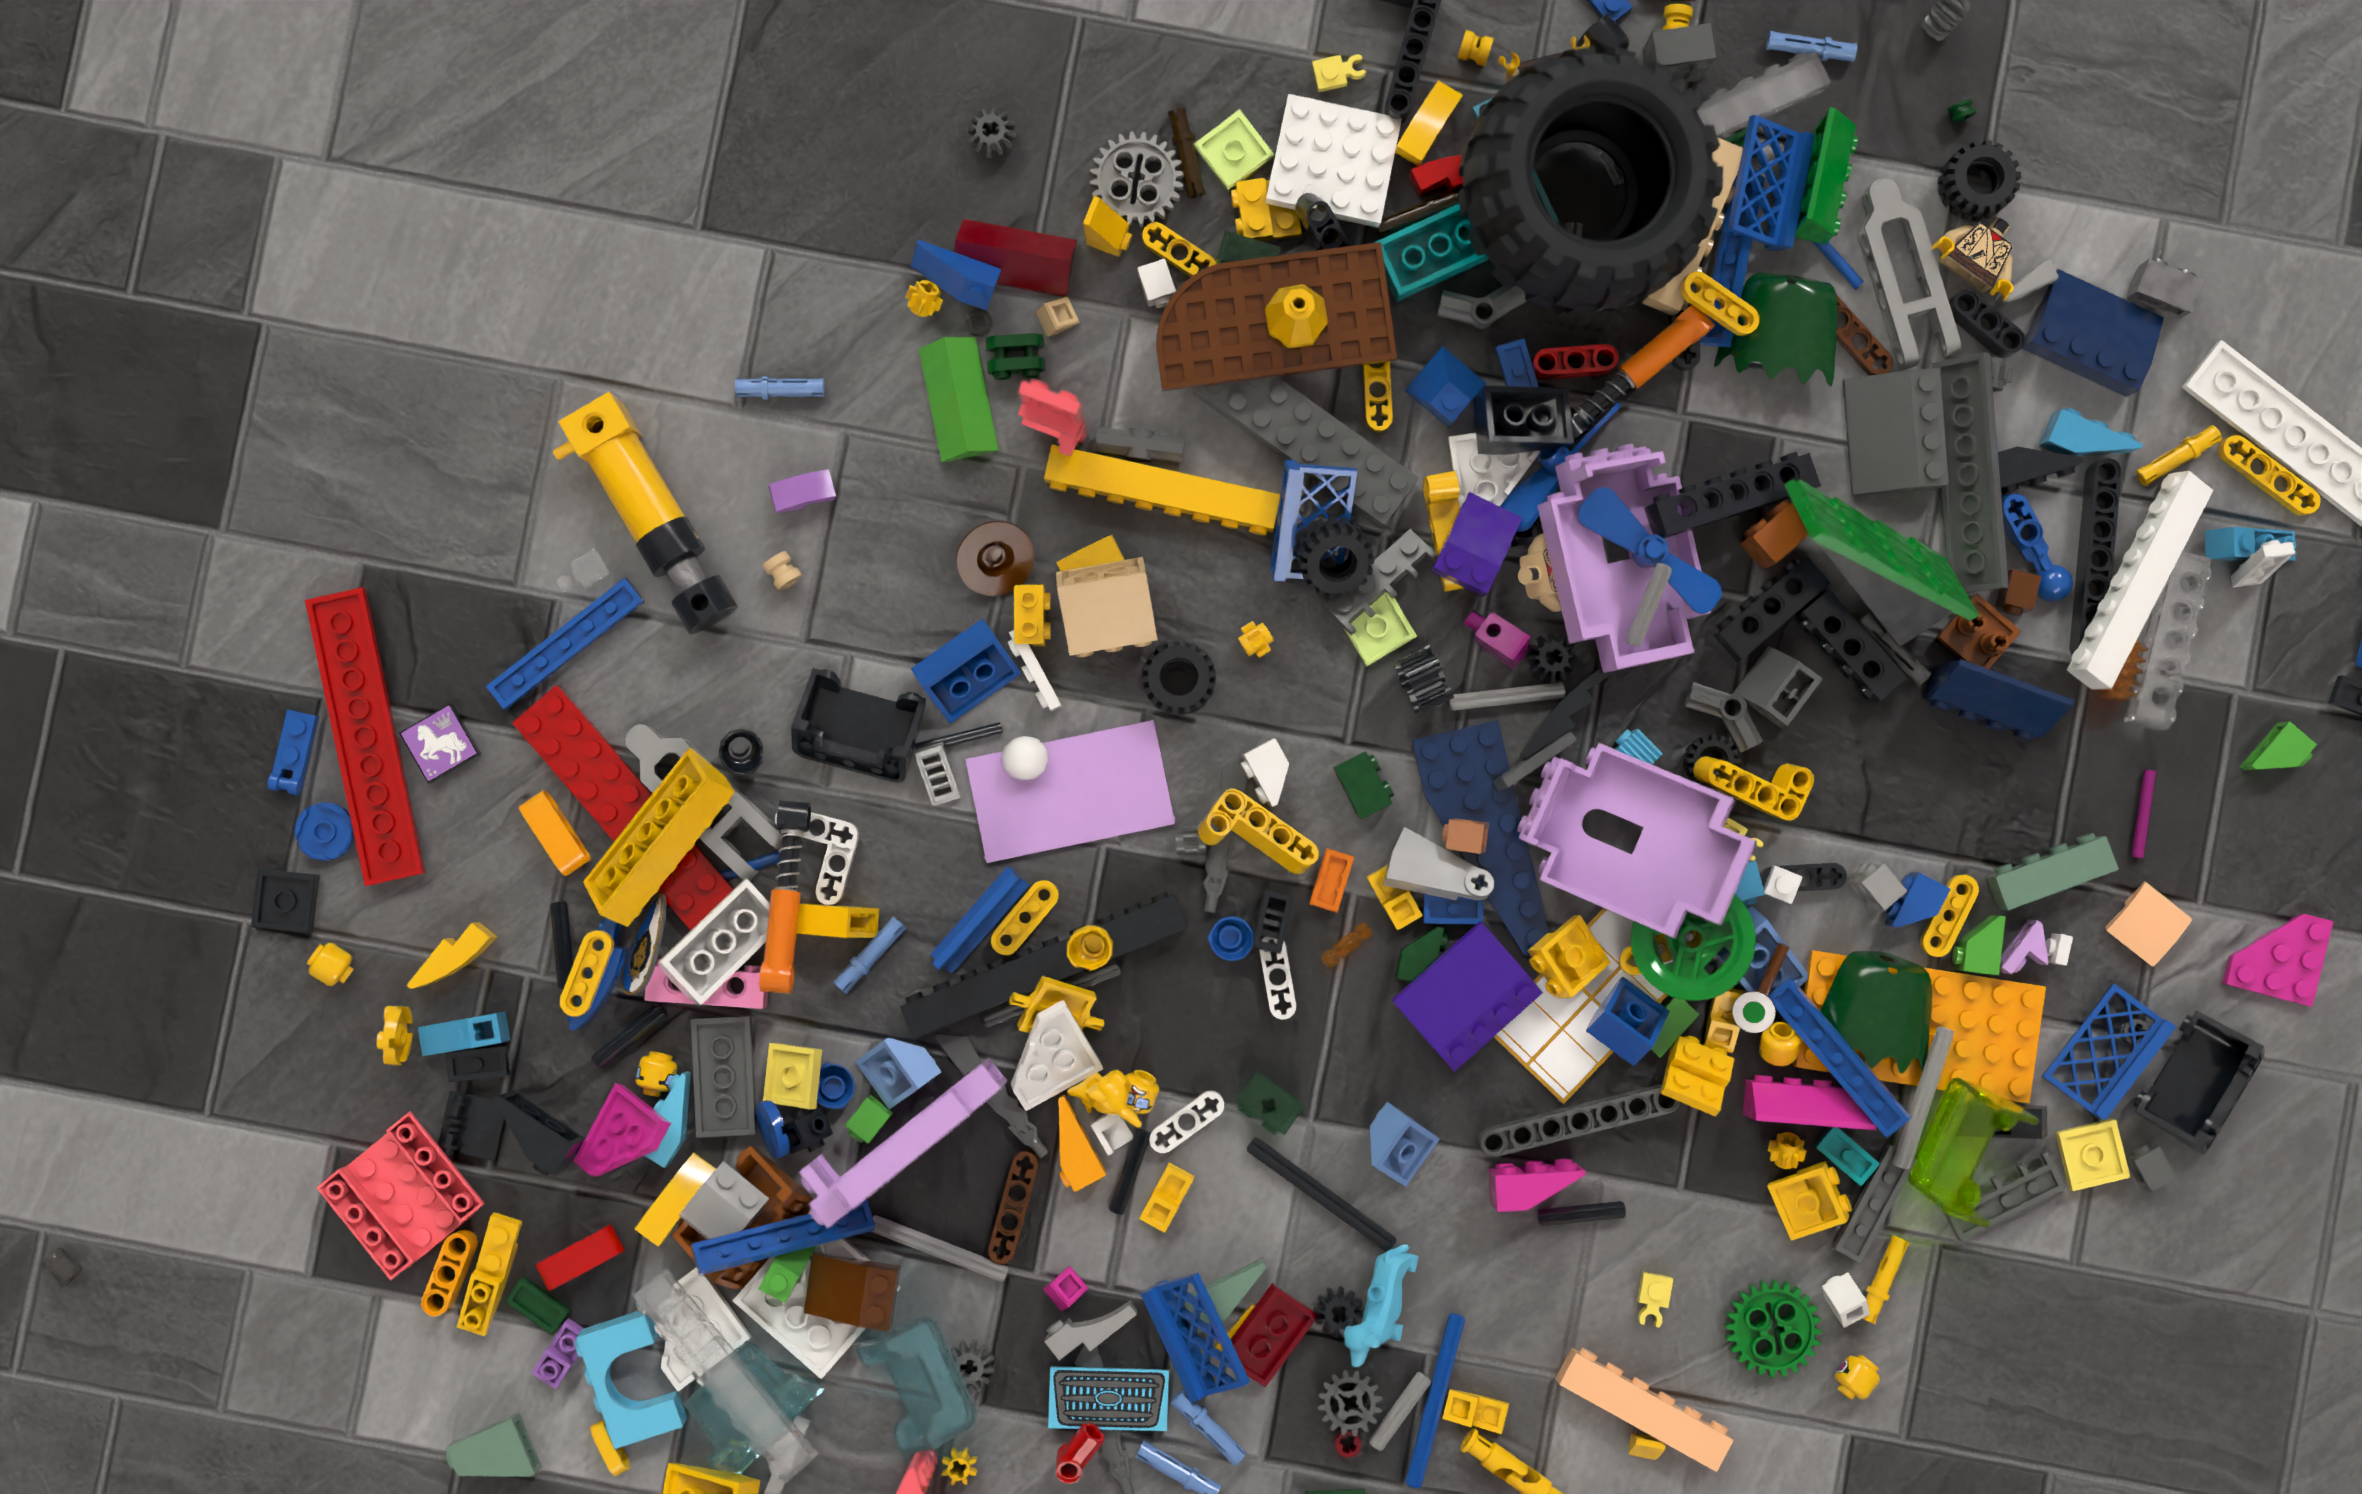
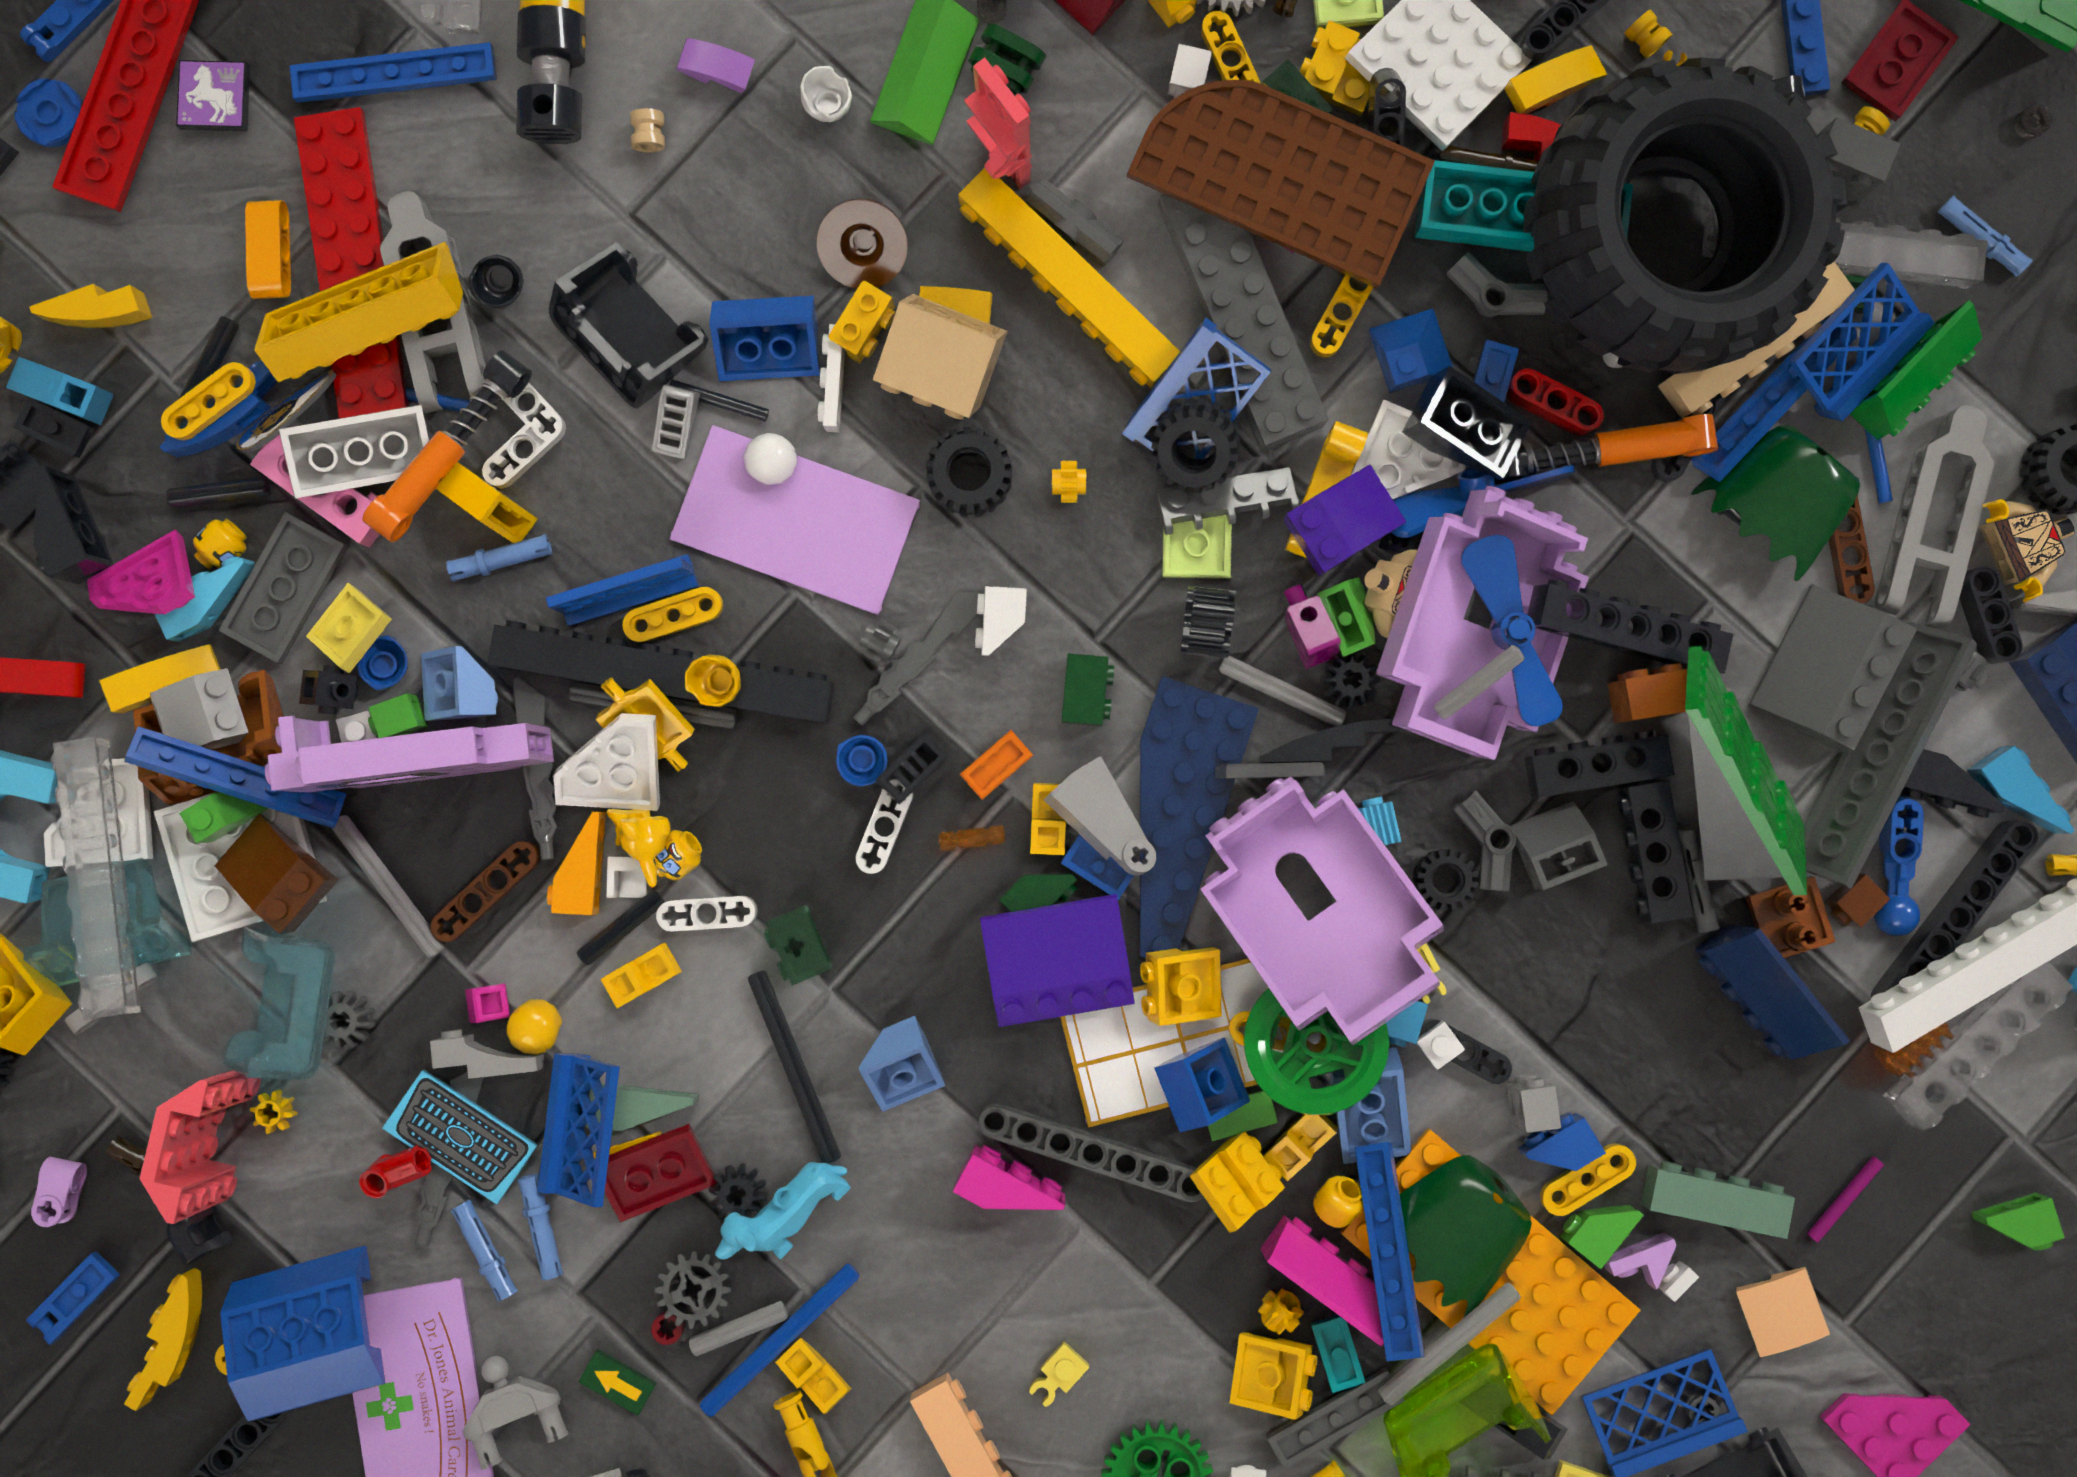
camera: 35 degrees right, 0 degrees up
(770, 1126) = (295, 667): blue tile -> none
(844, 1148) = (355, 727): none -> white plate
(898, 463) = (825, 94): none -> white hair
(1057, 316) = (1072, 48): tan slope -> none
(1111, 1284) = (534, 1027): none -> yellow hair
(1260, 836) = (952, 677): yellow beam -> none
(1296, 316) = (1305, 180): yellow cone -> none
(1466, 835) = (1155, 801): nougat brick -> none
(1522, 611) = (1349, 615): none -> bright green slope
(1581, 1213) = (1038, 1246): black axle -> none
(1730, 304) = (1746, 438): yellow plate -> none
(1748, 786) = (1469, 925): yellow beam -> none
(1754, 1009) = (1336, 1152): piece -> none

